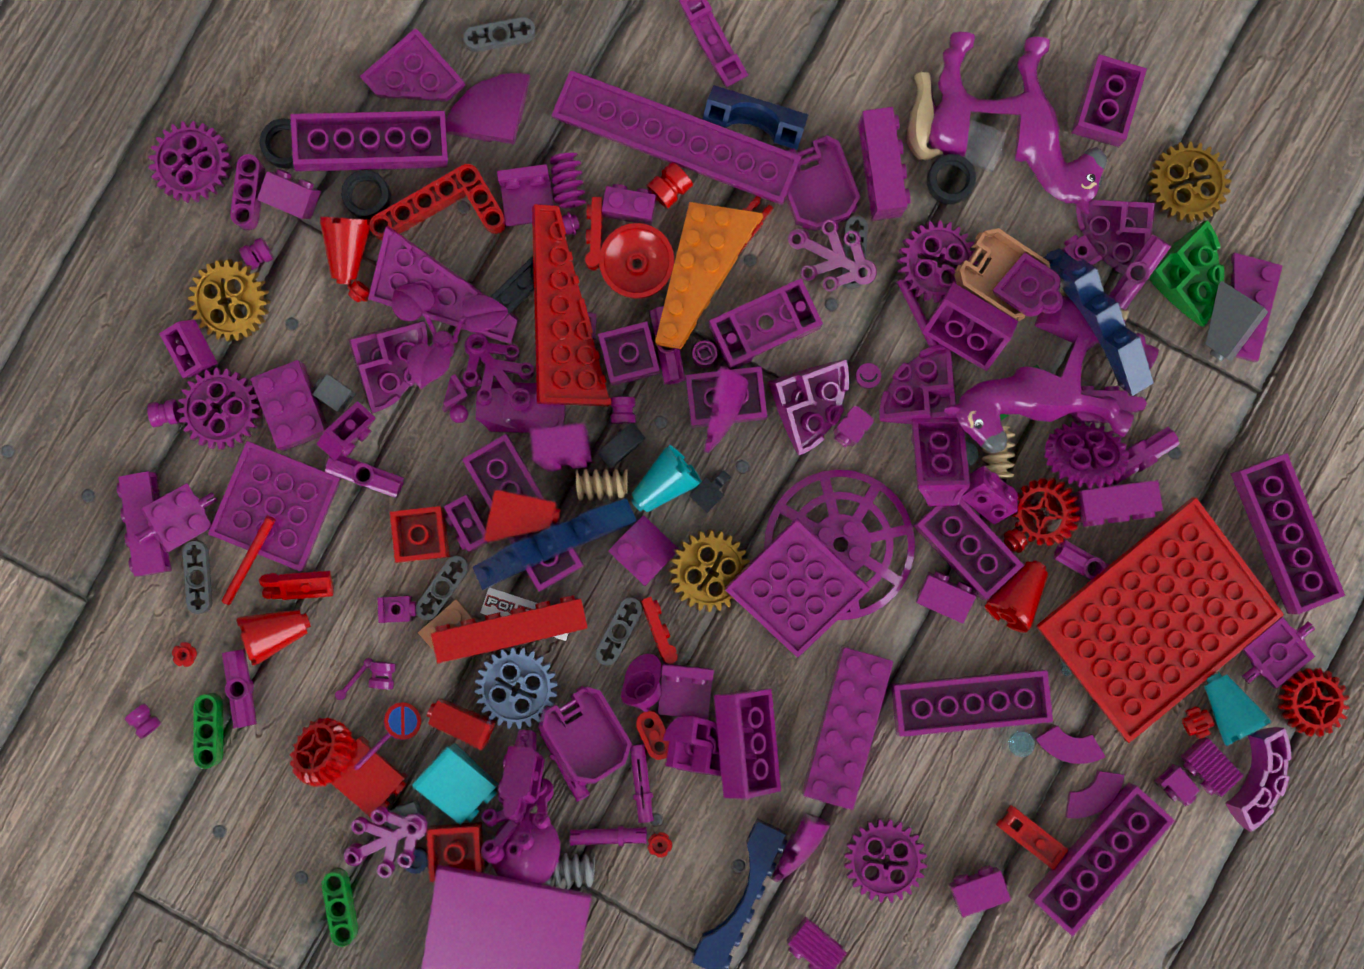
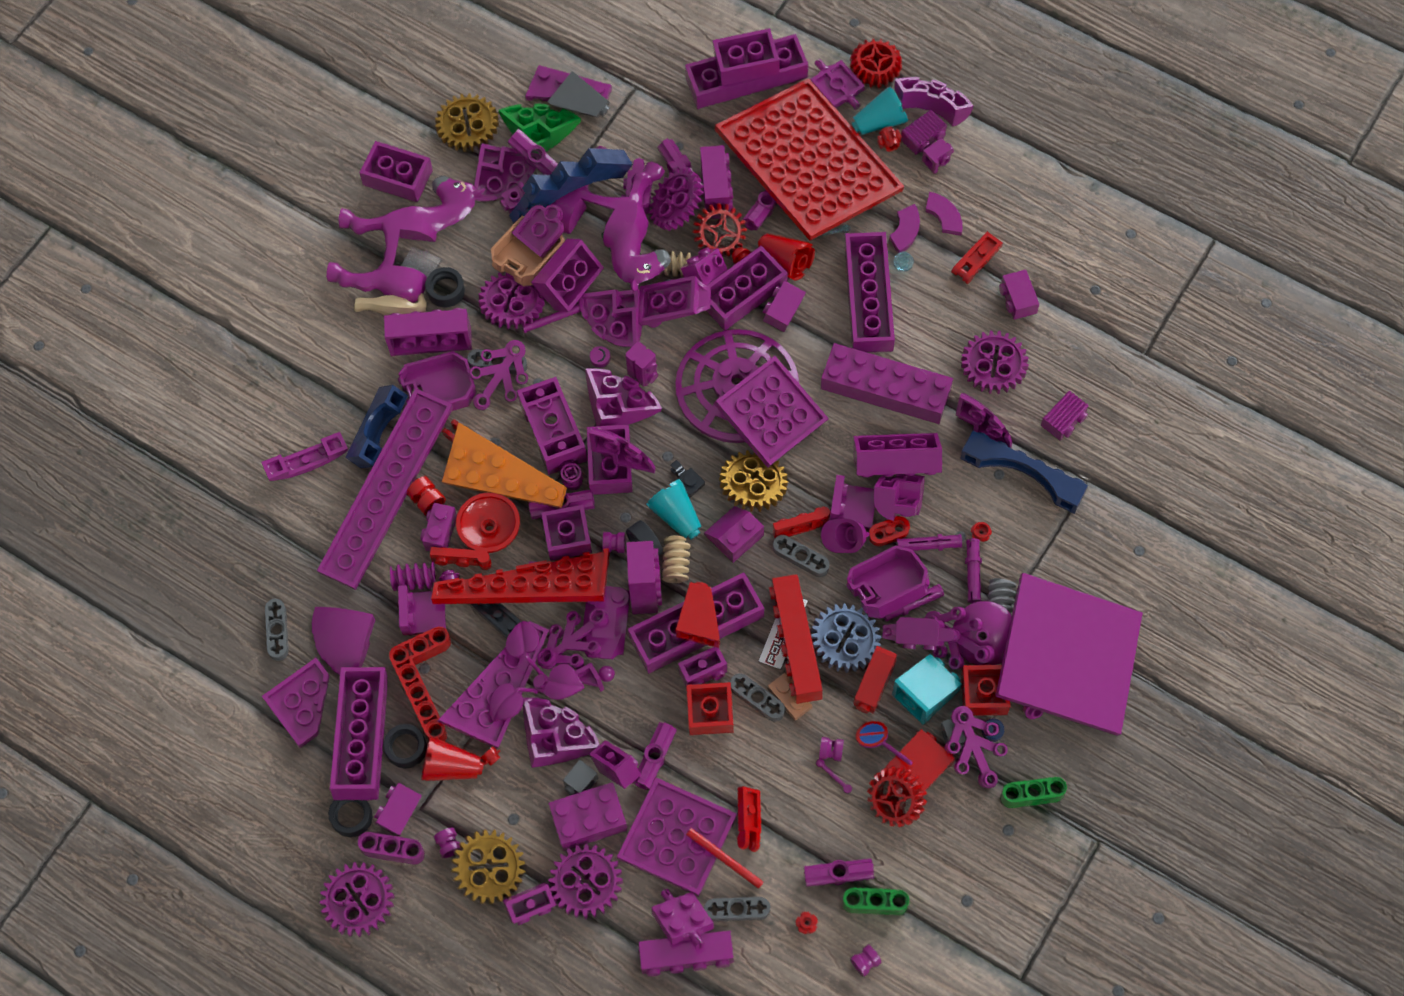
camera: 85 degrees left, 20 degrees down
(163, 413) = (585, 931): magenta wheel -> none
(271, 632) = (790, 842): red cone -> none
(386, 613) = (771, 741): magenta brick -> none
(553, 542) = (725, 594): dark blue arch -> none
(1101, 858) = (994, 208): magenta brick -> none
(1298, 532) = (746, 56): none -> magenta brick

